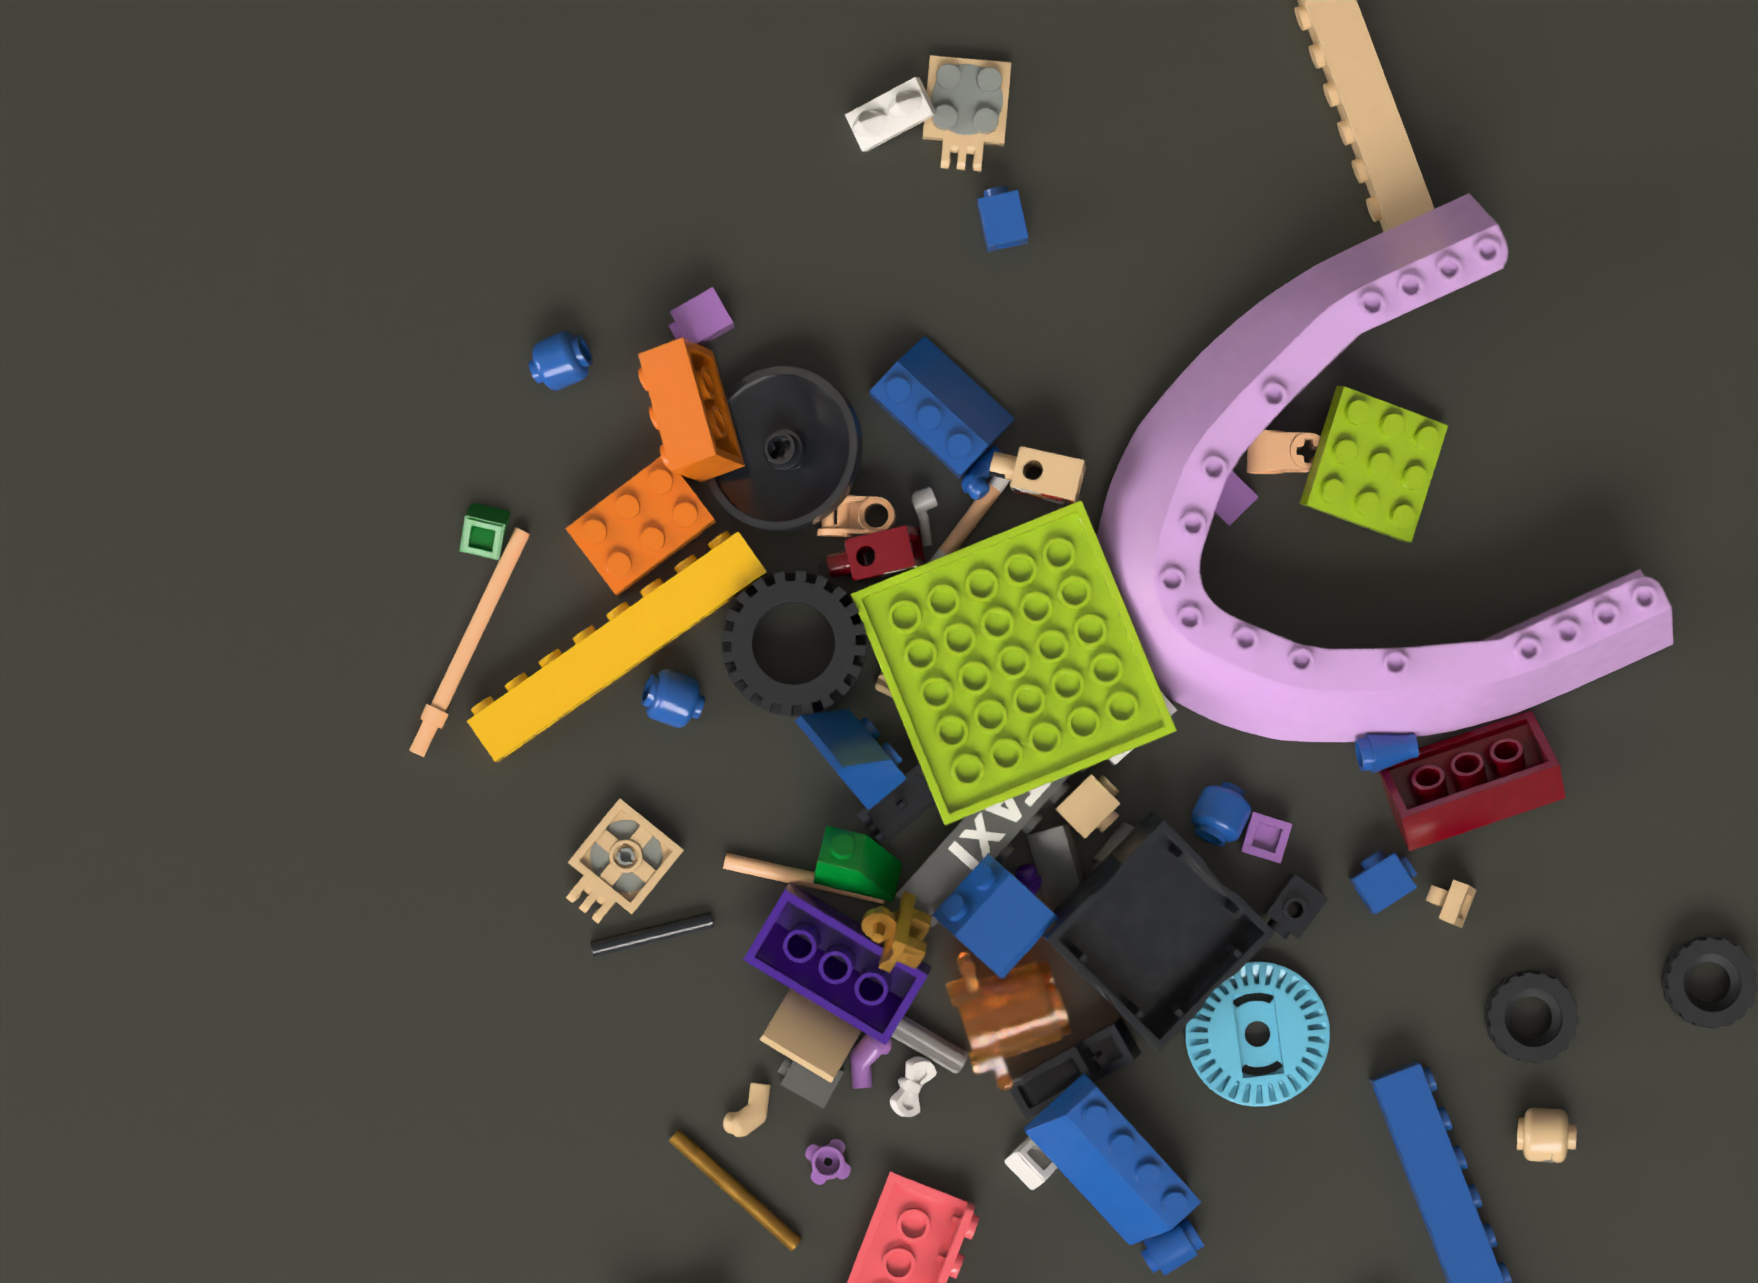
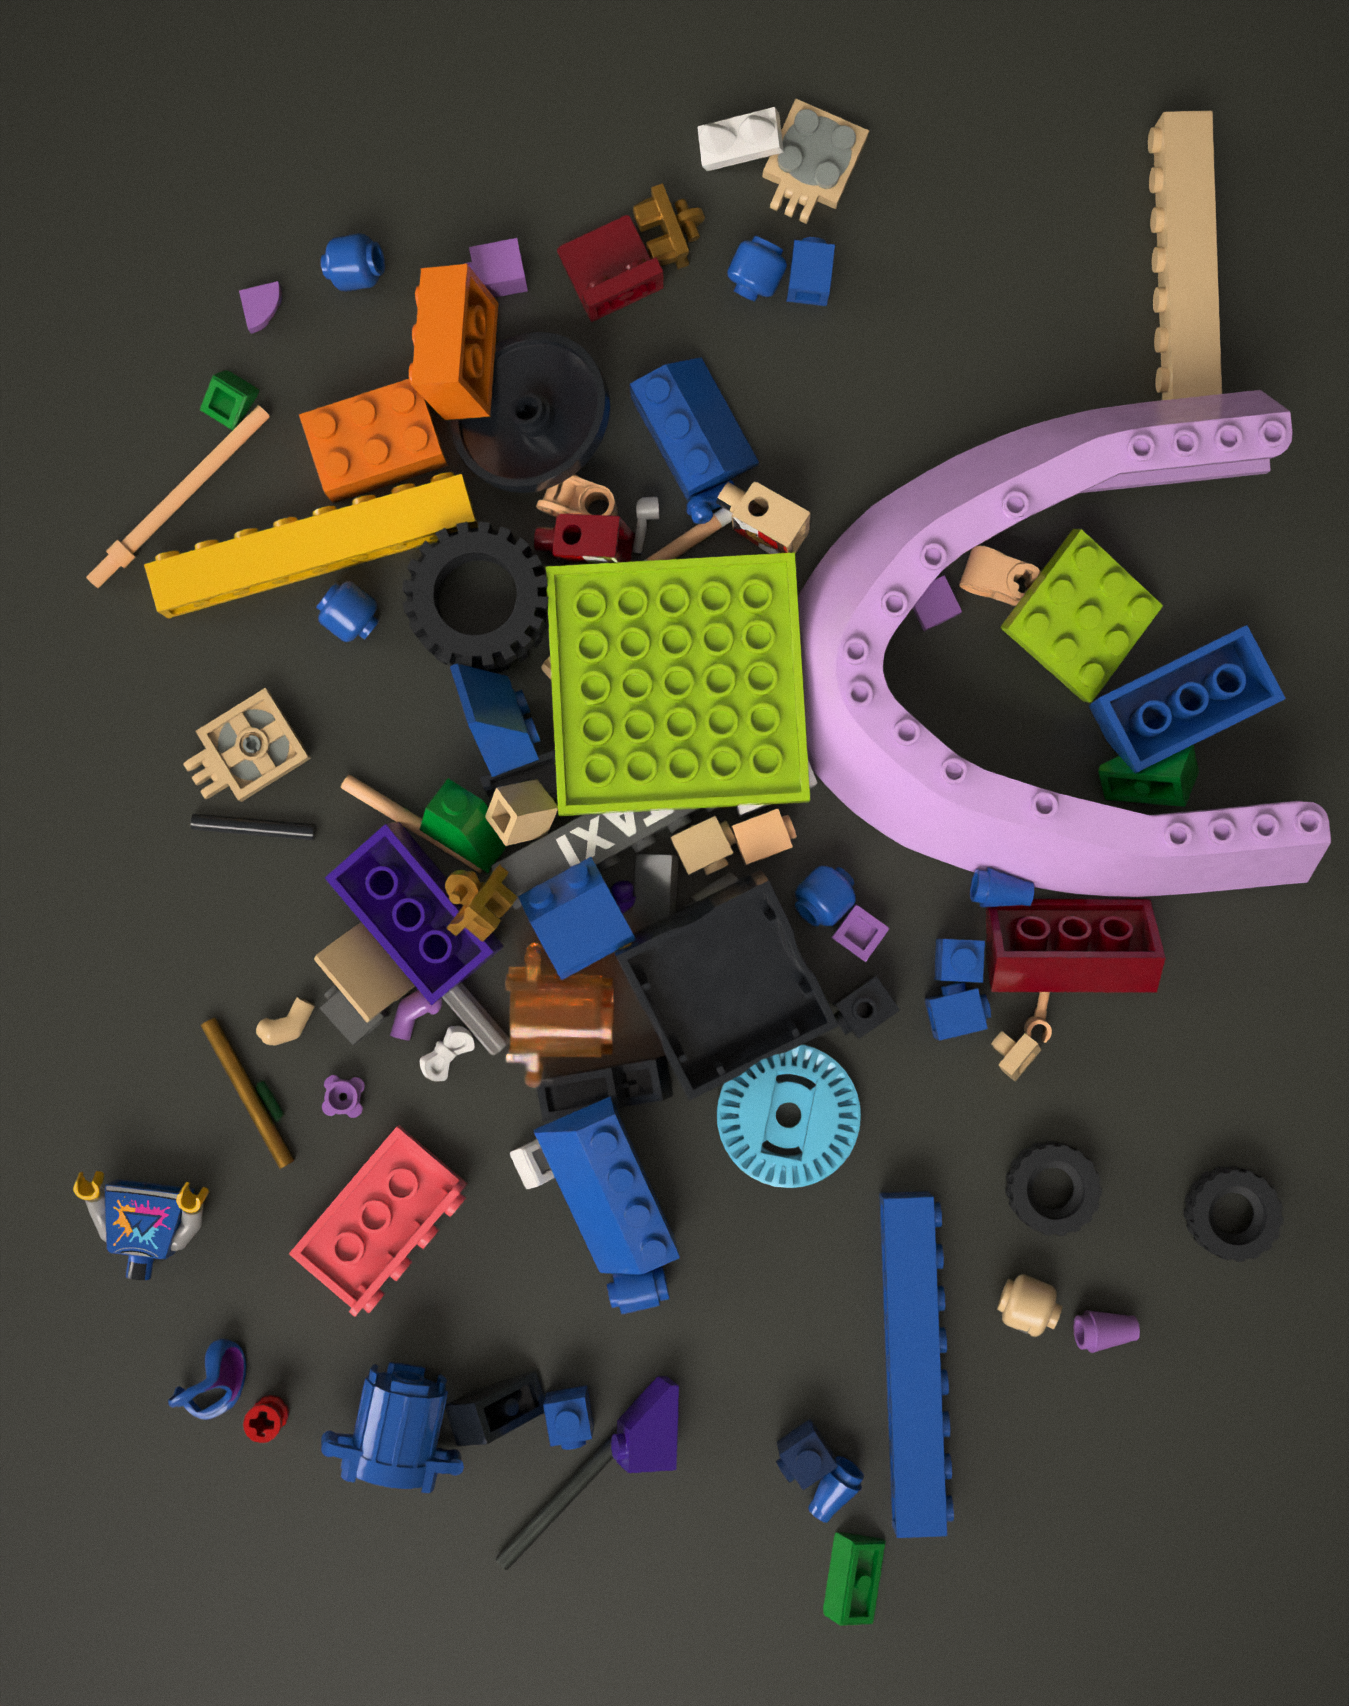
camera: 15 degrees right, 0 degrees up
(483, 429) = (260, 304): none -> medium lavender tile
(759, 1191) = (273, 1105): none -> dark green leg
(808, 280) = (610, 268): none -> dark red bracket
(837, 210) = (658, 211): none -> pearl gold hips
(907, 834) = (521, 812): none -> tan brick
(949, 234) = (756, 268): none -> blue head
(1143, 777) = (763, 836): none -> light nougat brick
(1369, 831) = (959, 960): none -> blue brick
(1464, 859) = (1040, 1017): none -> light nougat hand
(1491, 591) = (1161, 783): none -> green slope
(1500, 512) = (1187, 700): none -> blue slope
(1625, 1134) = (1104, 1330): none -> medium lavender cone

